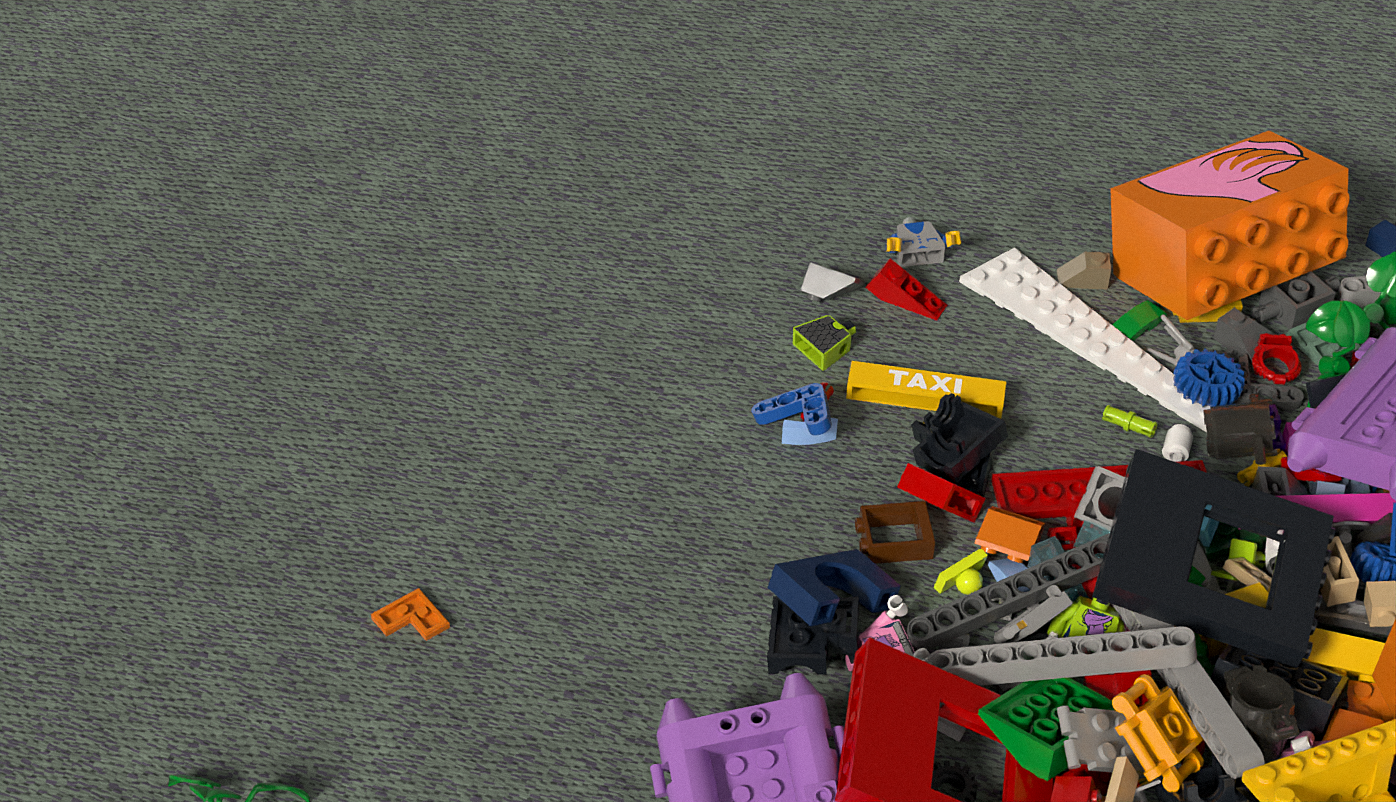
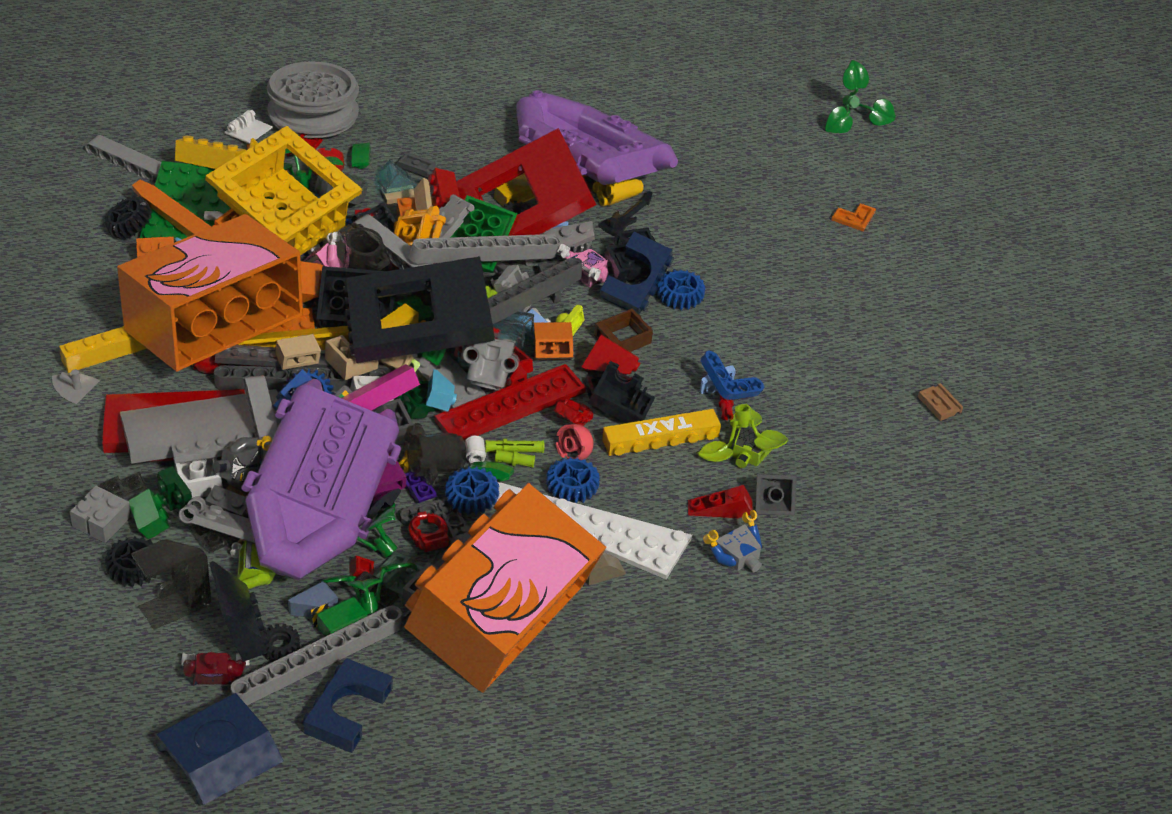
camera: 150 degrees right, 0 degrees up
(544, 322) = (940, 402): none -> medium nougat plate
(765, 557) = (681, 289): none -> blue gear
(810, 315) = (743, 417): none -> lime plant
(1044, 403) = (574, 438): none -> coral cylinder
(1045, 438) = (569, 411): none -> red piece
(1070, 371) = (572, 480): none -> blue gear
(1133, 439) = (511, 446): none -> lime pin
(1167, 409) = (501, 471): none -> green slope

